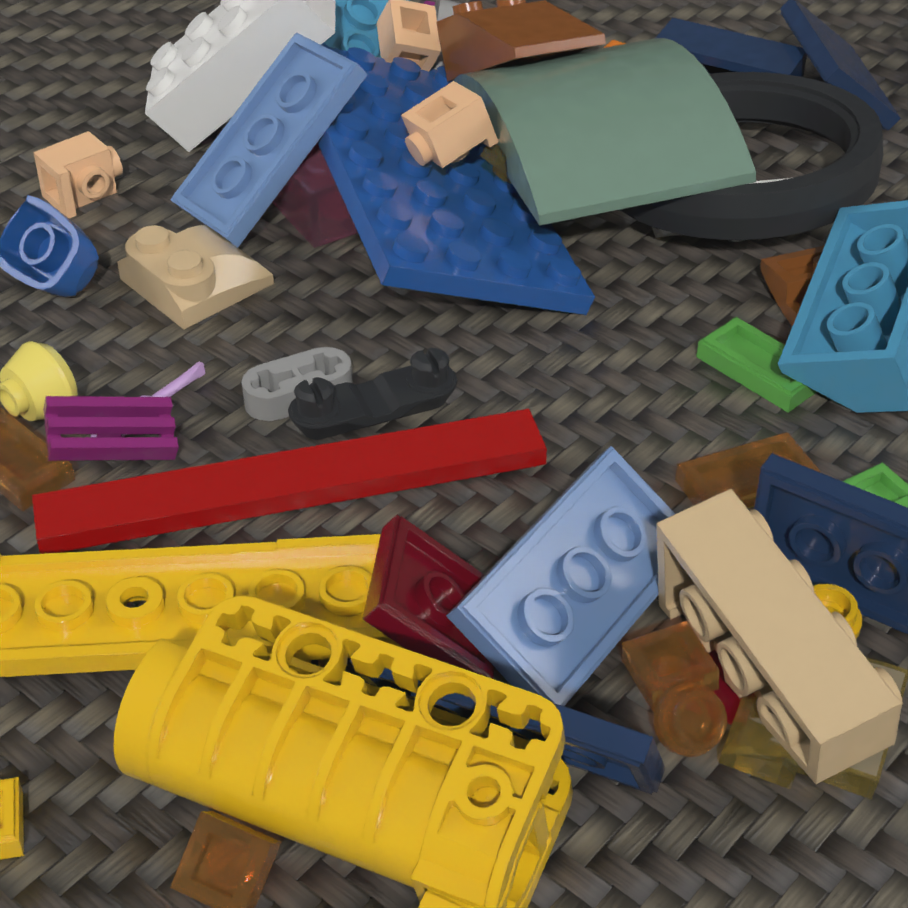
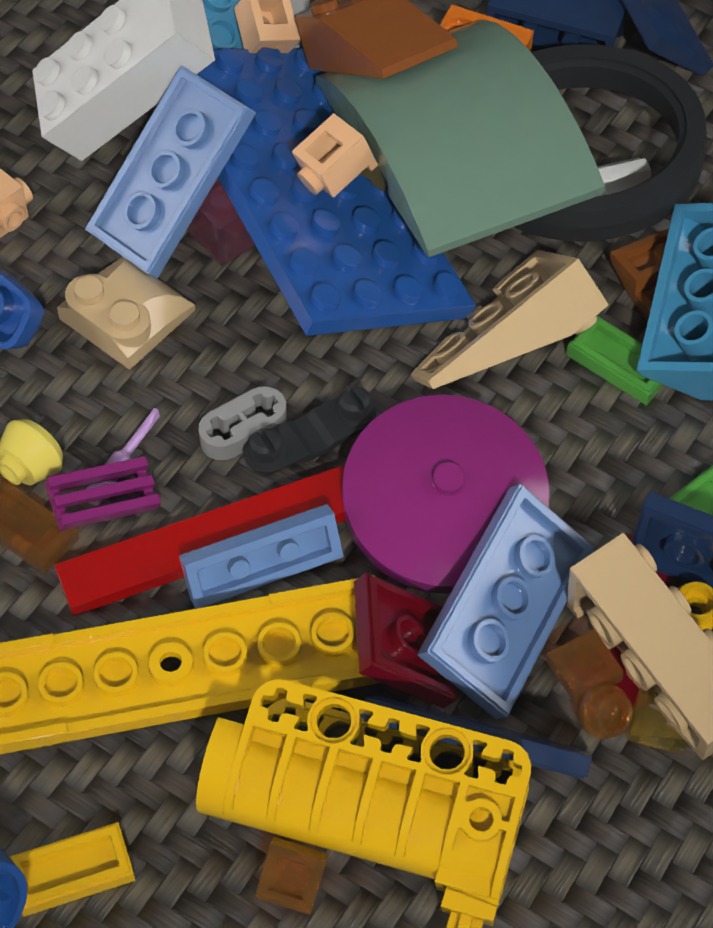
camera: 10 degrees left, 15 degrees up
(284, 504) = (261, 556): none -> medium blue plate
(501, 447) = (431, 482): none -> magenta dish
(670, 299) = (534, 306): none -> tan wedge
(736, 469) = (621, 476): clear orange tile -> none

